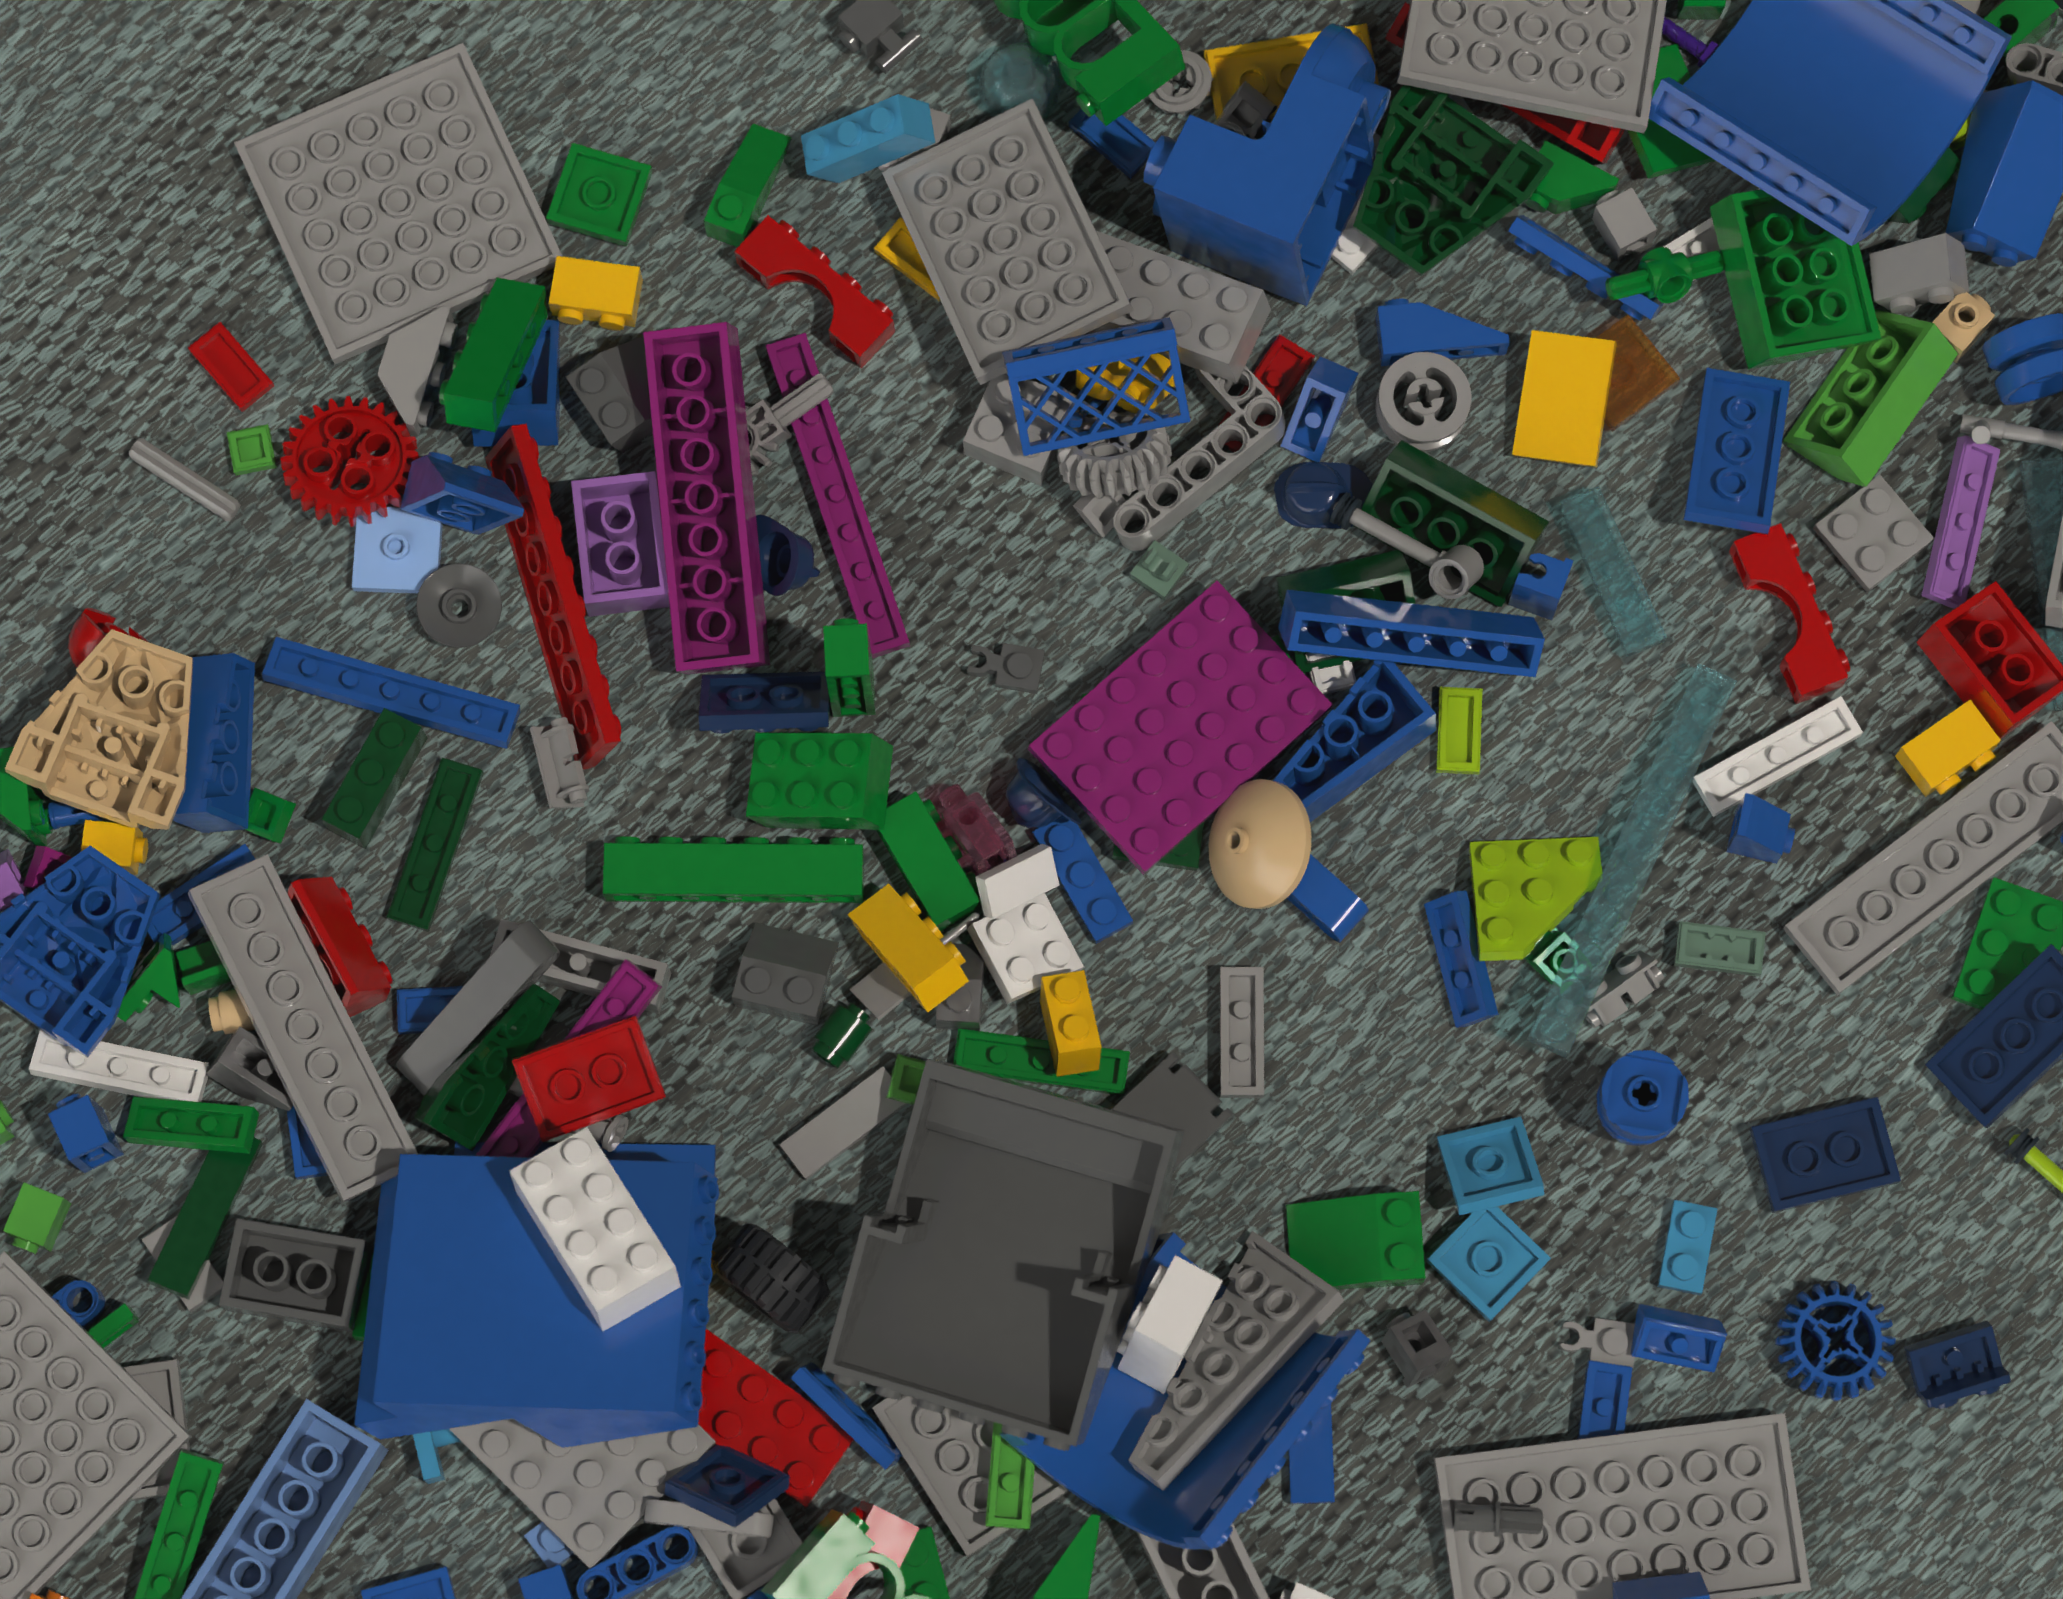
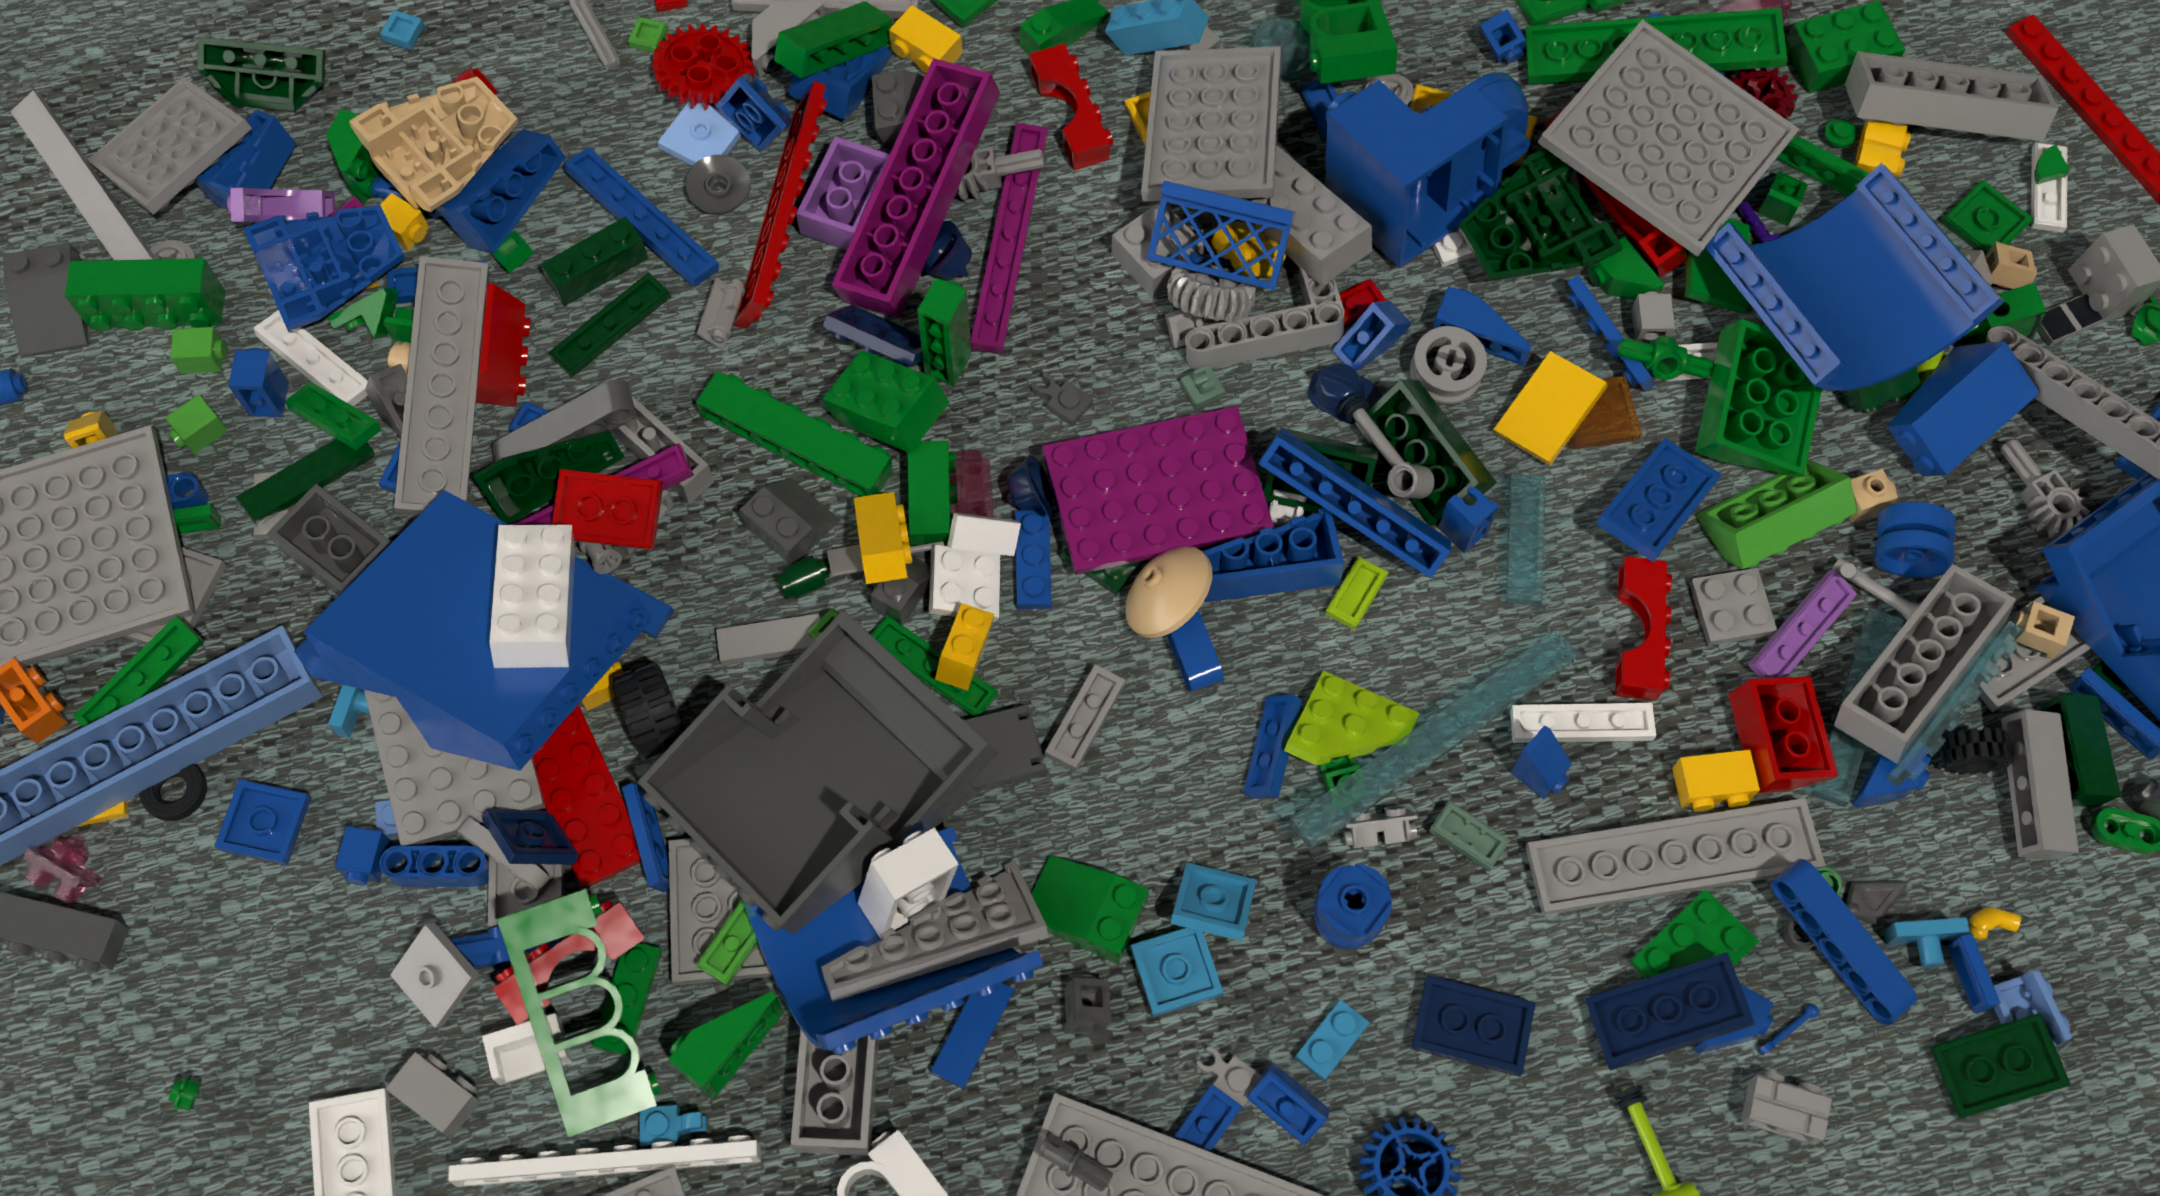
camera: 25 degrees right, 10 degrees down
(1919, 273) = (1854, 443): light grey brick -> none

